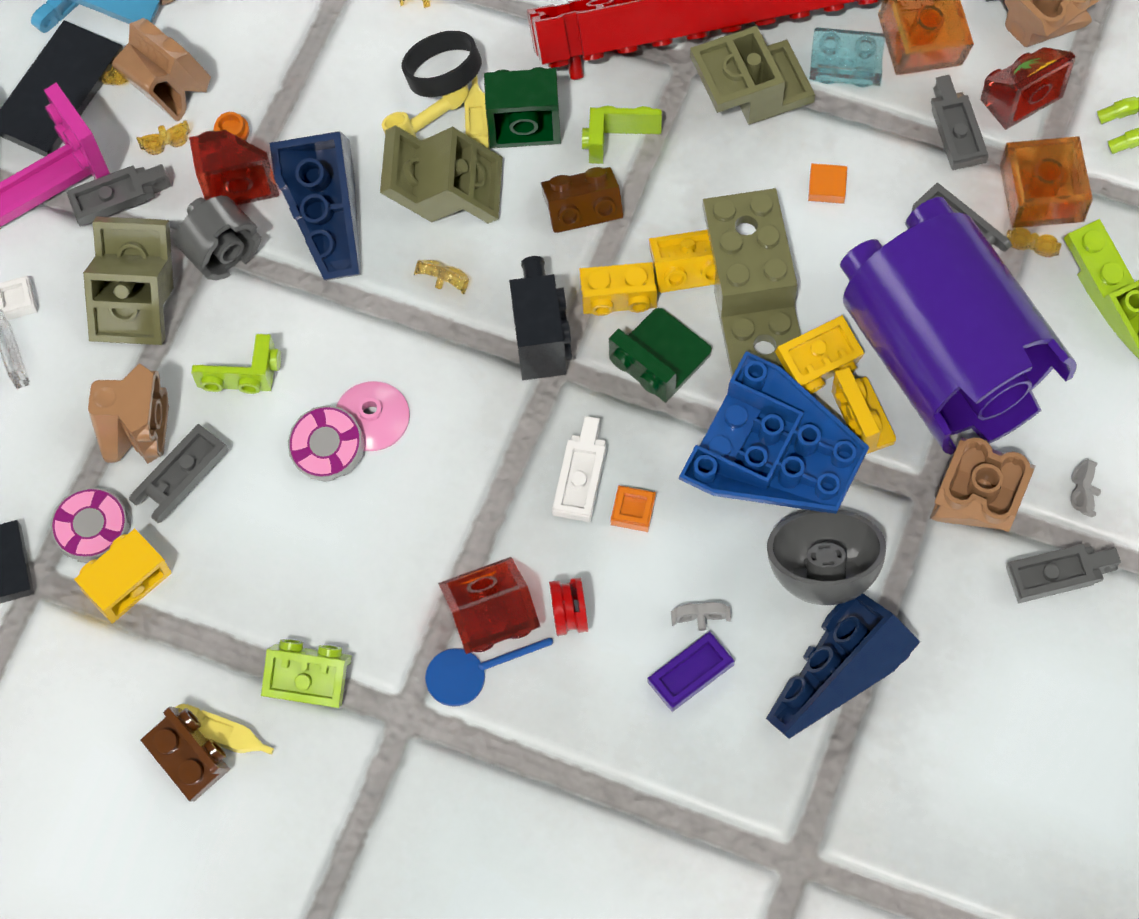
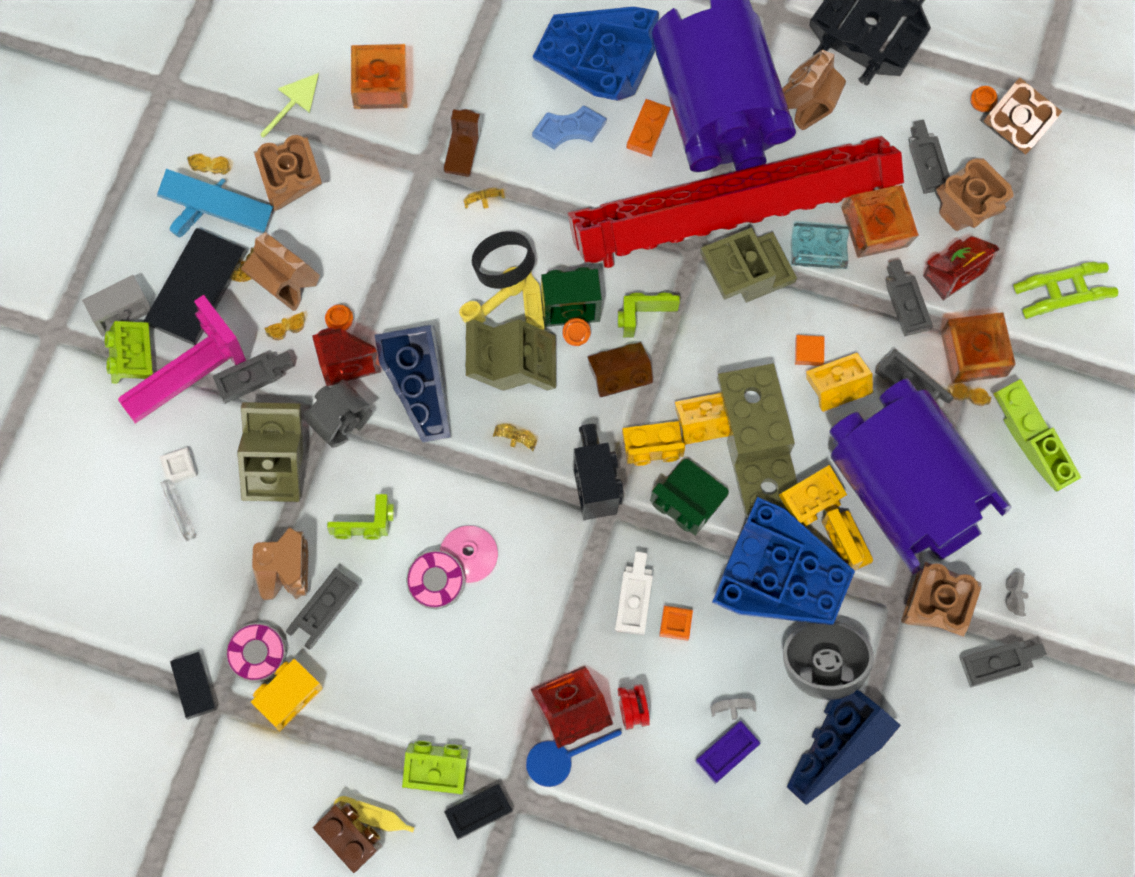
camera: 10 degrees left, 5 degrees up
(358, 732) = (478, 811): none -> black tile
(528, 152) = (576, 331): none -> orange plate
(864, 218) = (841, 381): none -> yellow bracket

